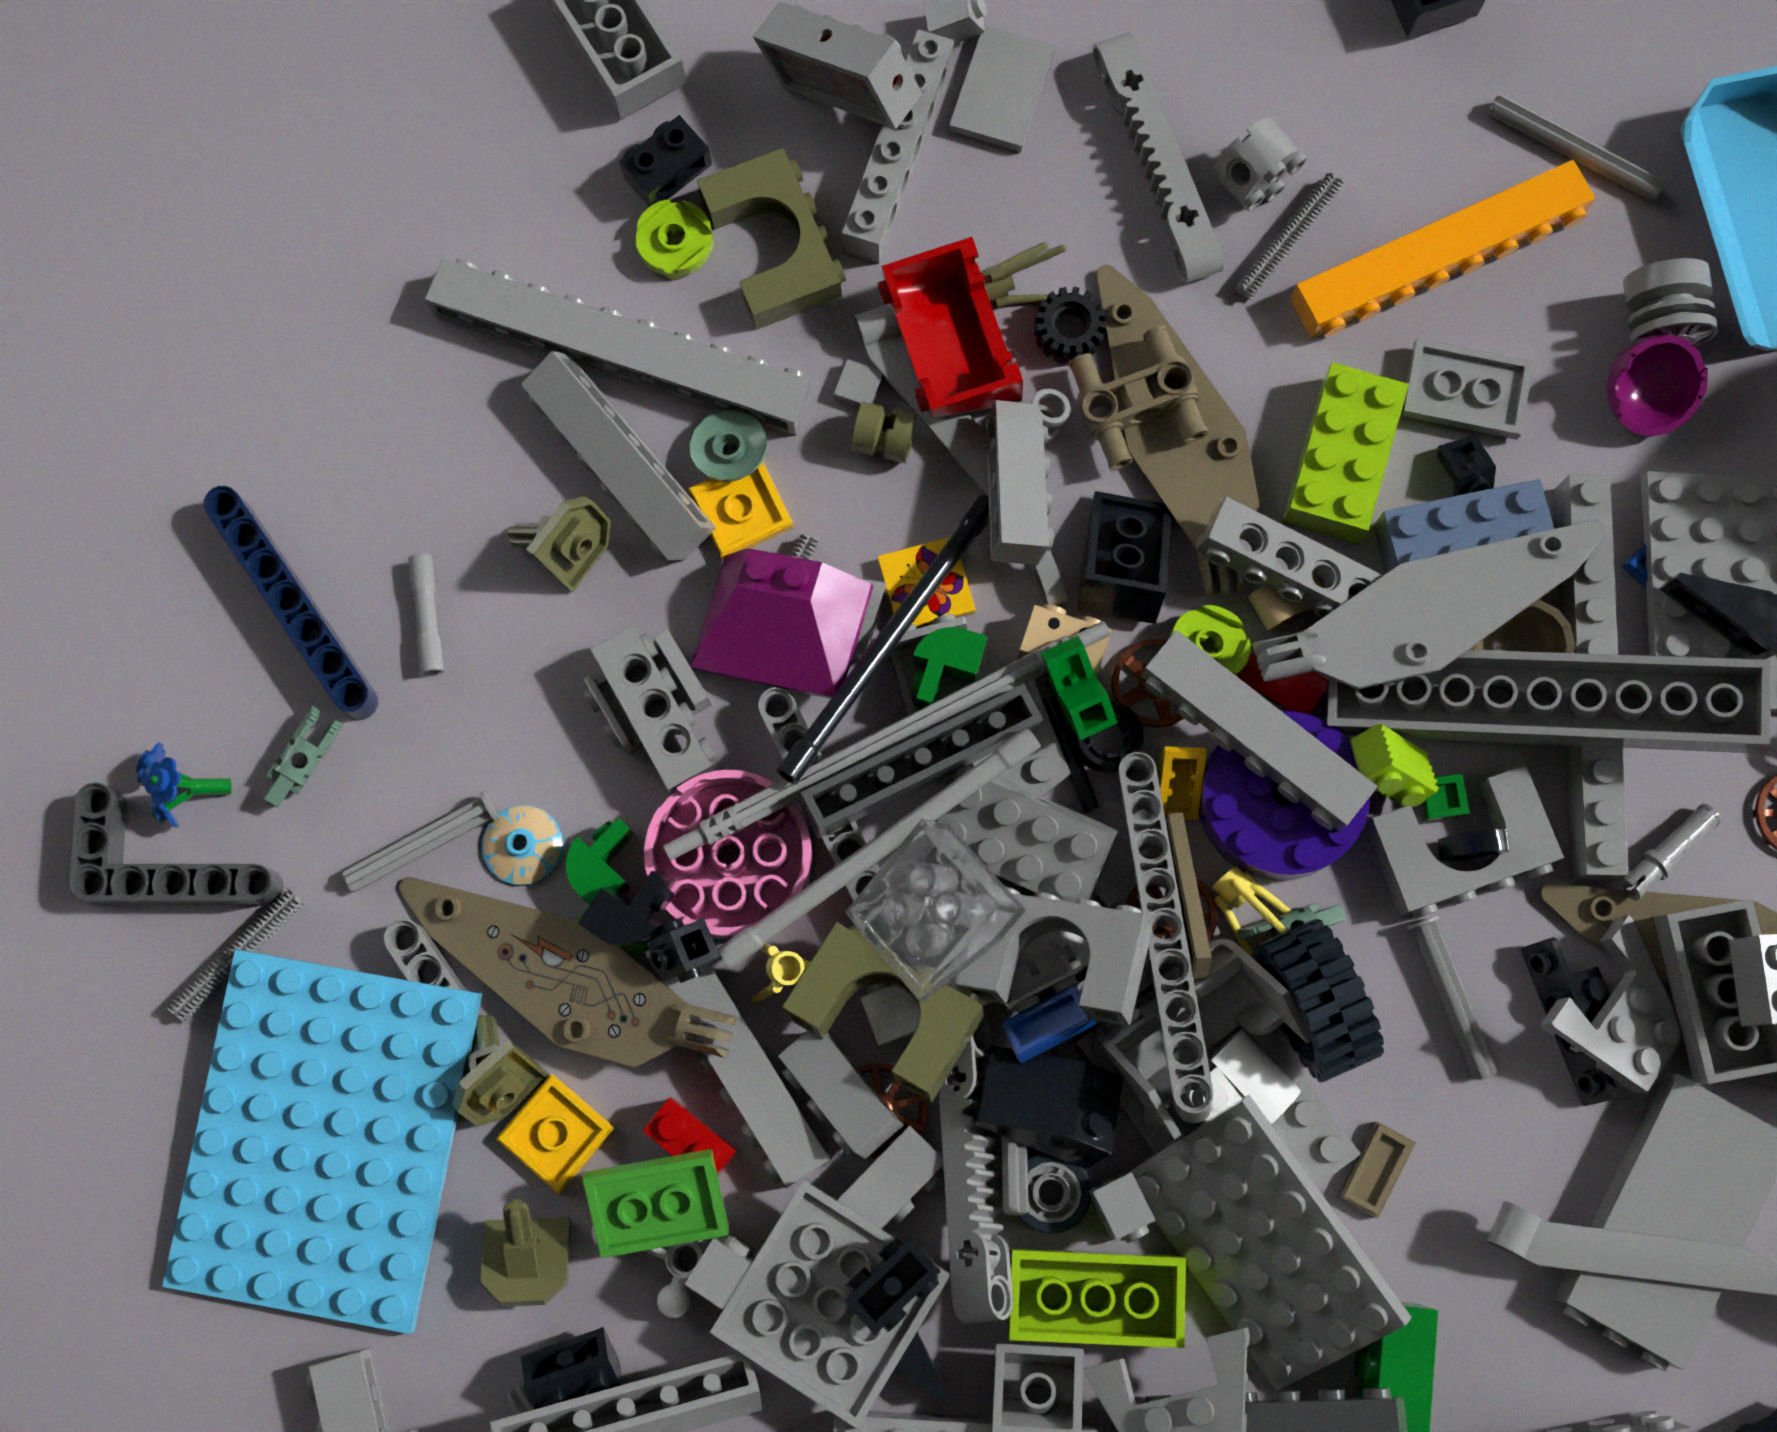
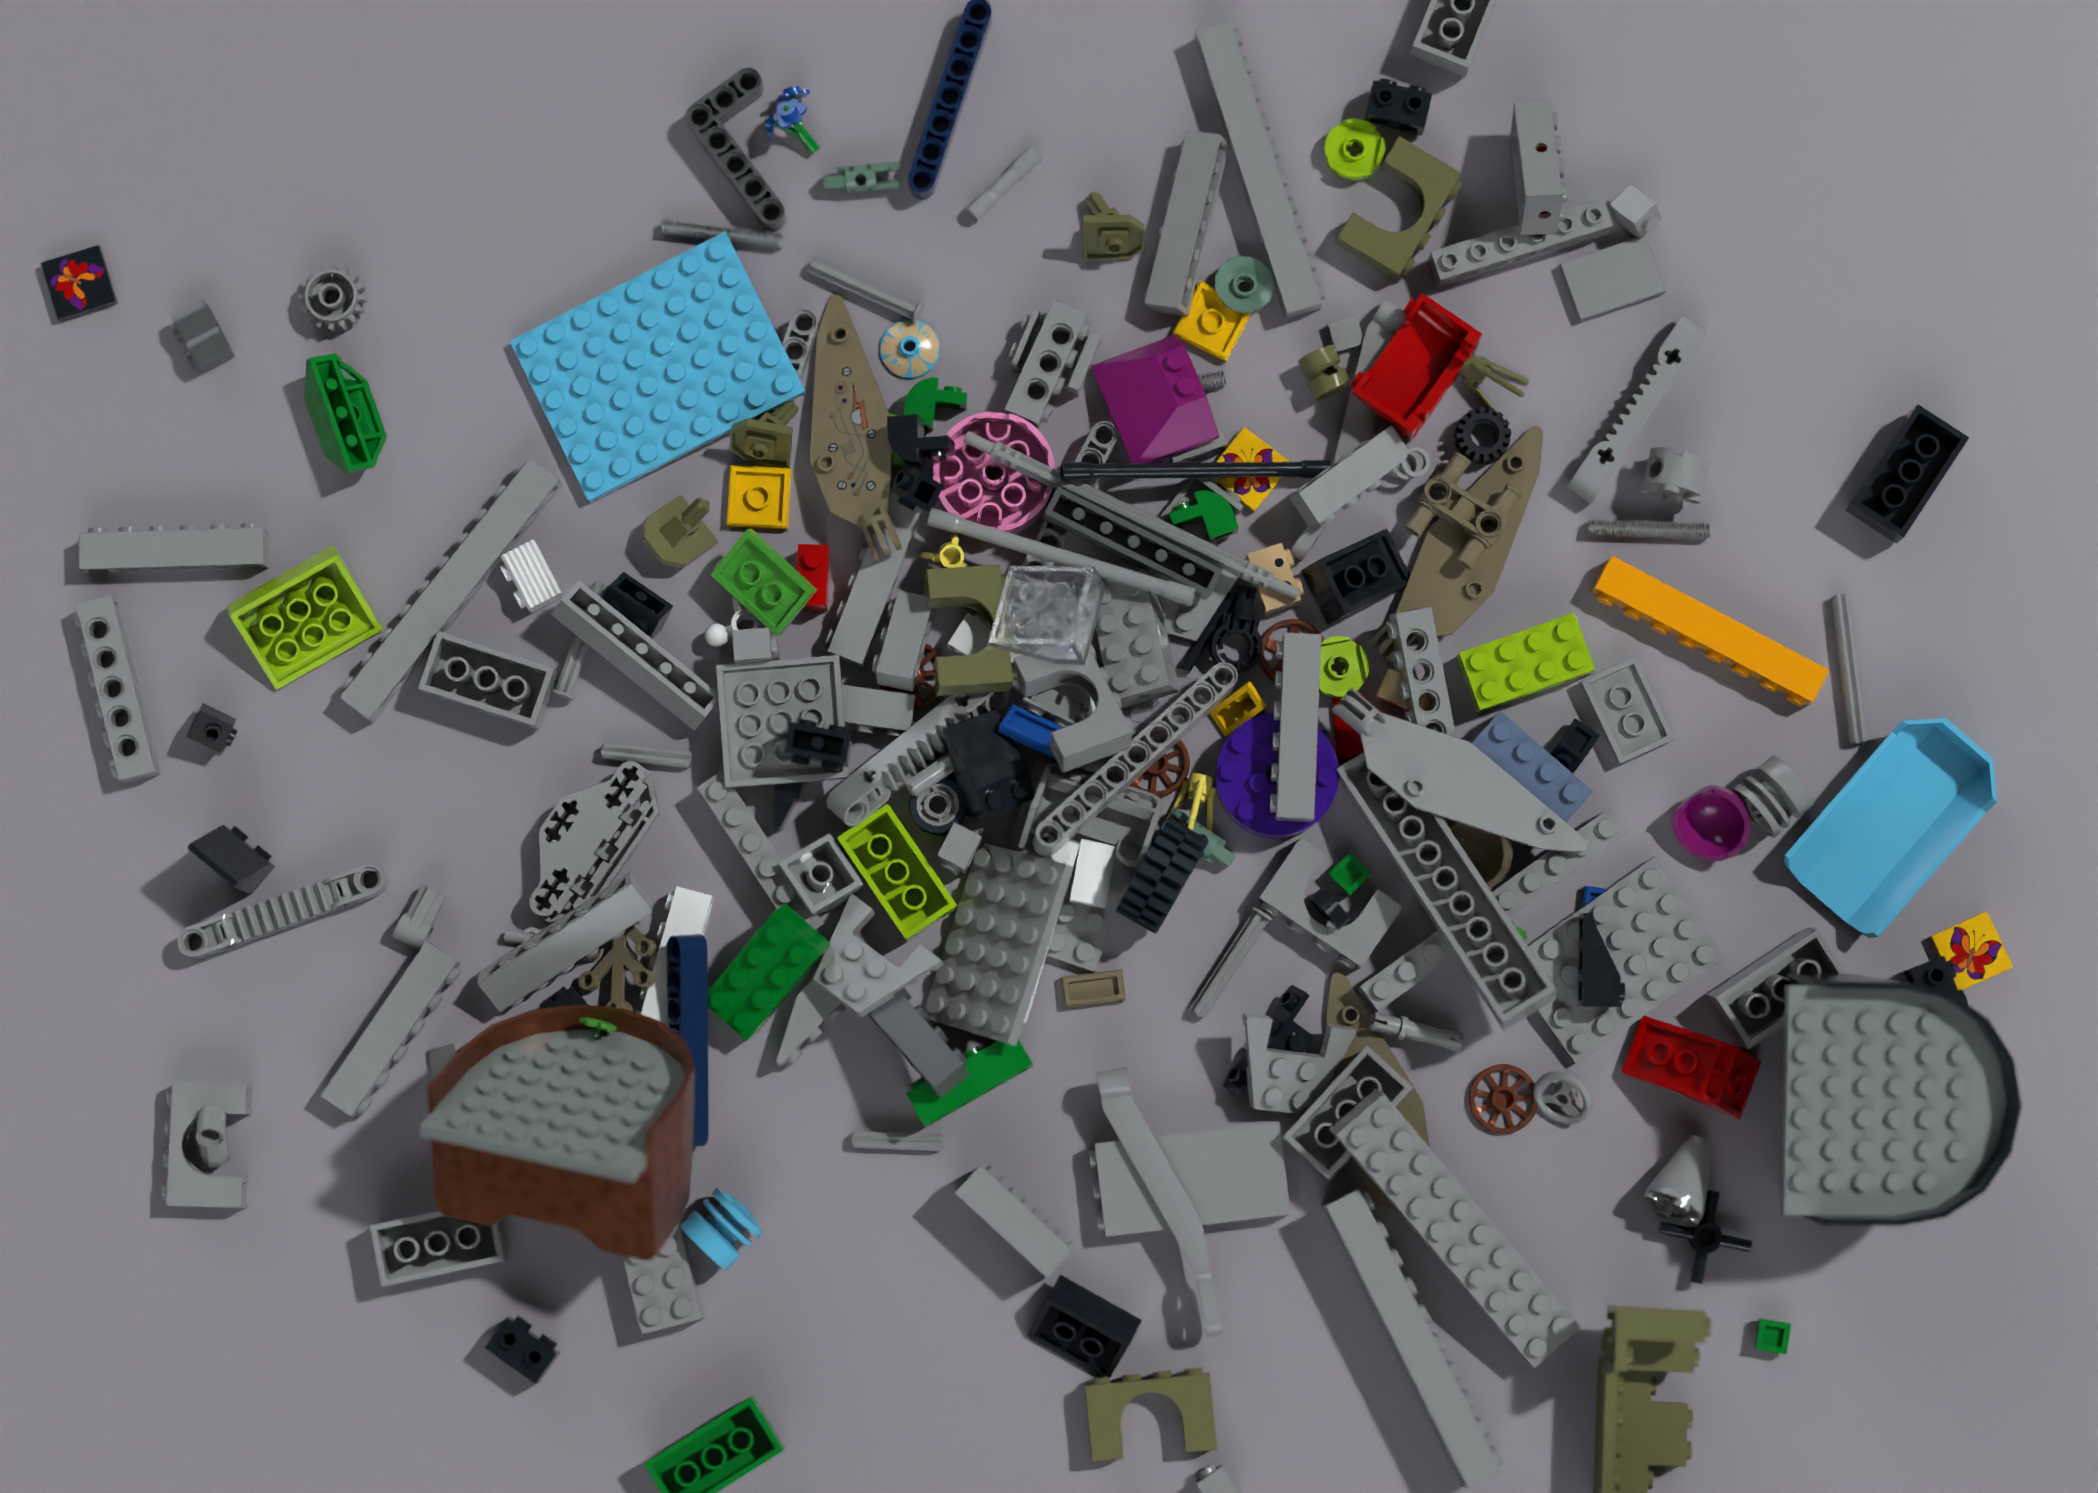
camera: 50 degrees right, 5 degrees up
(1077, 688) = (1245, 604): green brick -> none
(1189, 896) = (1170, 758): dark tan tile -> none
(1394, 765) = (1341, 827): lime brick -> none

